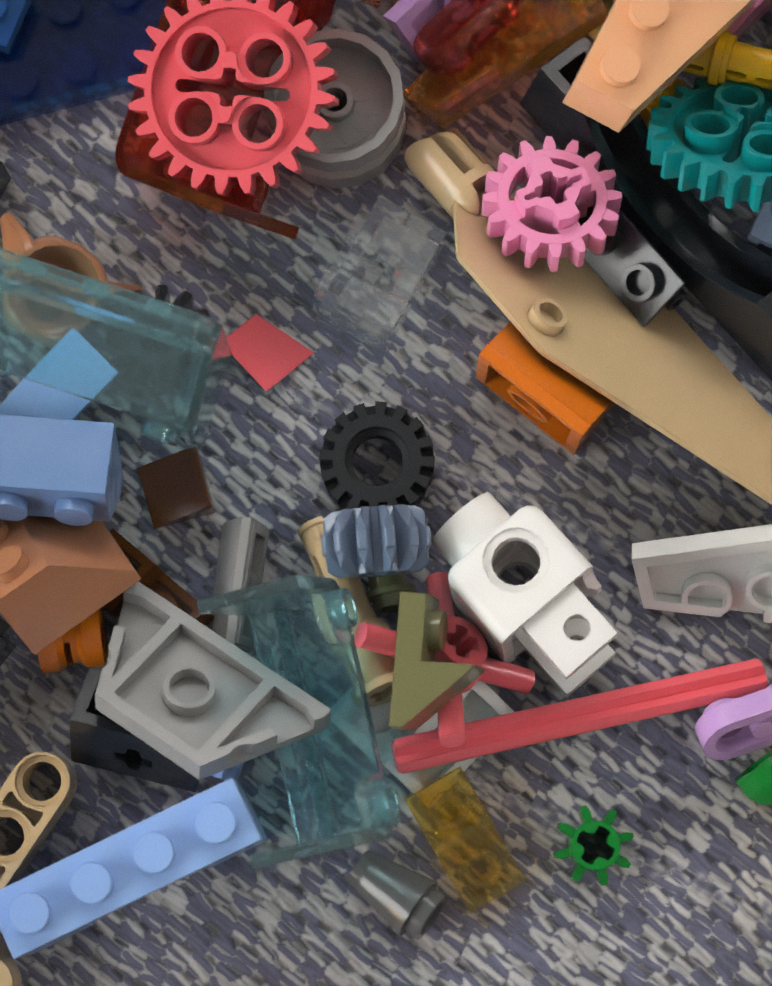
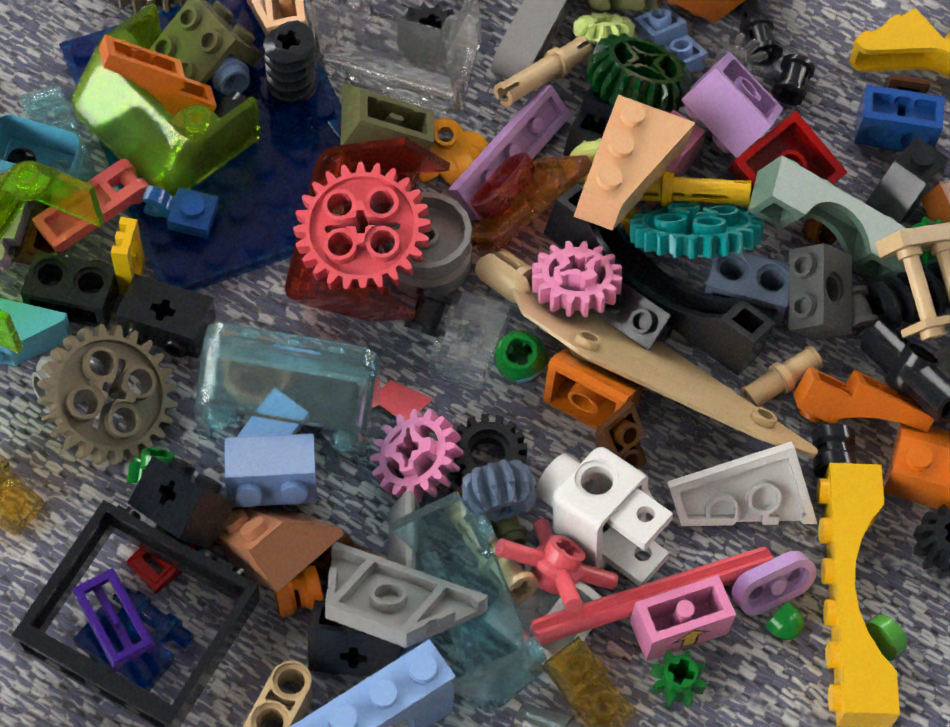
camera: 15 degrees left, 20 degrees down
(176, 488) = (355, 489): reddish brown slope -> none
(270, 453) = (416, 454): none -> bright pink gear
(323, 219) = (429, 312): none -> black bush
(419, 683) = (549, 562): olive slope -> none
(450, 310) = (520, 356): none -> green piece
(572, 482) = (622, 435): none -> reddish brown slope
(614, 760) = (682, 617): none -> bright pink brick

